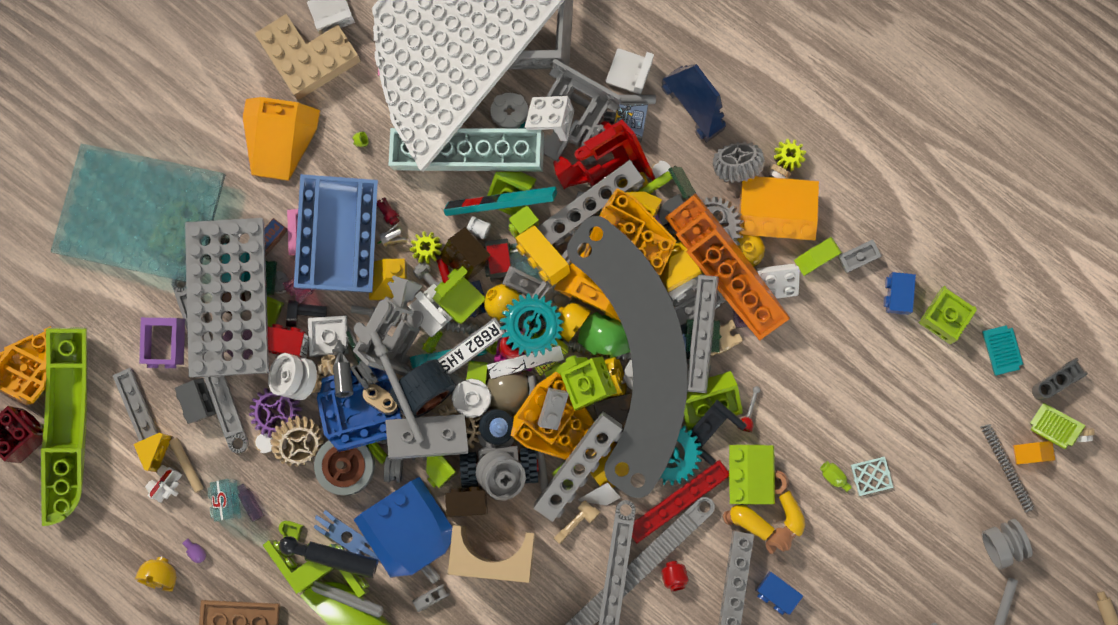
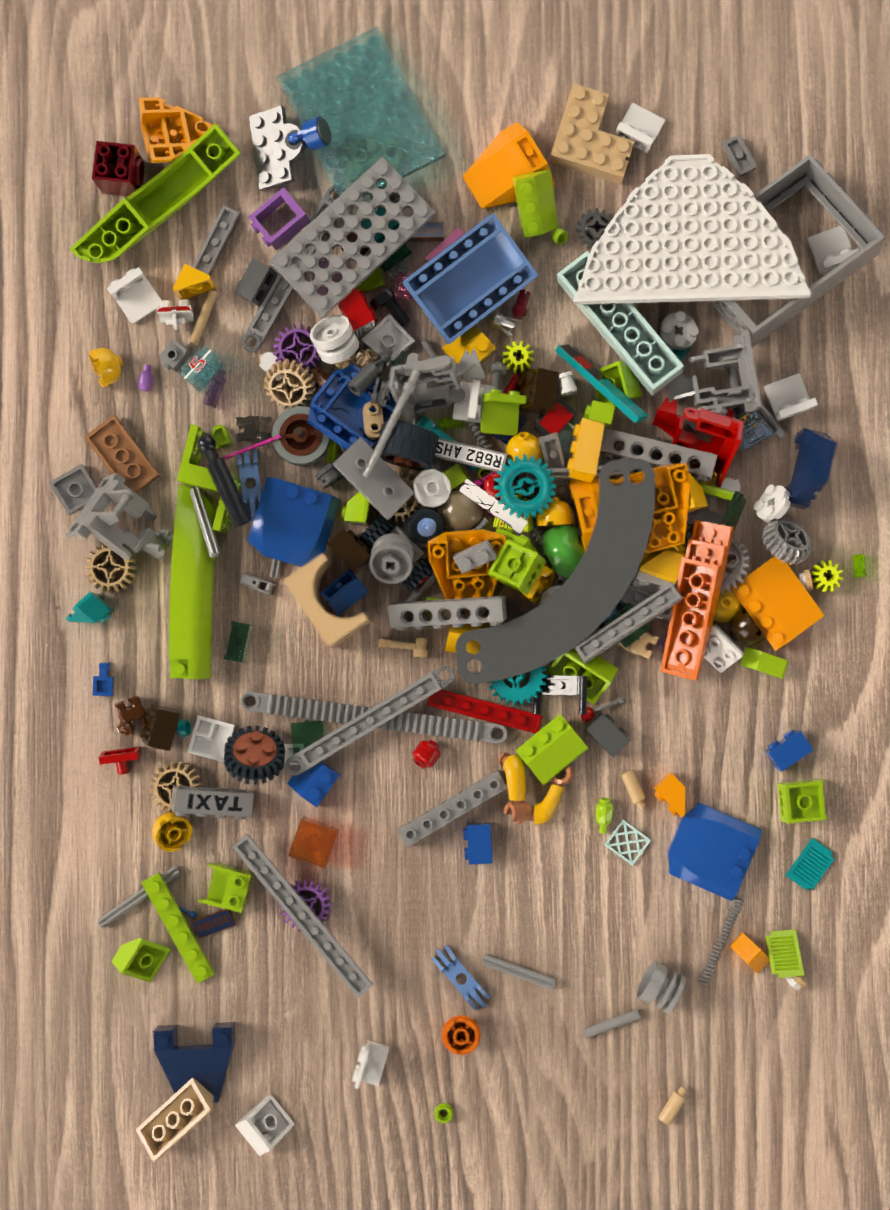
camera: 50 degrees right, 5 degrees up
(106, 292) = (282, 143): none -> plate
(122, 504) = (135, 295): none -> white bracket
(201, 508) = (181, 355): none -> light grey brick
(306, 501) = (251, 429): none -> clear smoke animal
(311, 411) = (320, 375): none -> nougat tile
(318, 517) = (249, 448): none -> dark pink piece
(320, 136) = (535, 203): none -> lime slope
(375, 113) = (589, 230): none -> dark grey gear
(494, 534) = (344, 592): none -> blue brick
(551, 113) = (703, 365): white bracket -> none
(603, 495) = (441, 649): white sticker -> none
(700, 158) = (764, 506): none -> white plate
(775, 421) = (607, 734): none -> dark grey brick
(780, 249) = (745, 629): none -> dark brown cylinder
(801, 124) = (859, 565): none -> clear neon green pin
(833, 436) = (633, 788): none -> tan cylinder
(859, 256) = (791, 695): light grey plate -> none
(861, 408) = (672, 792): none -> light orange slope
(931, 415) = (712, 850): none -> blue wedge
(1069, 373) = (835, 931): dark grey piece -> none

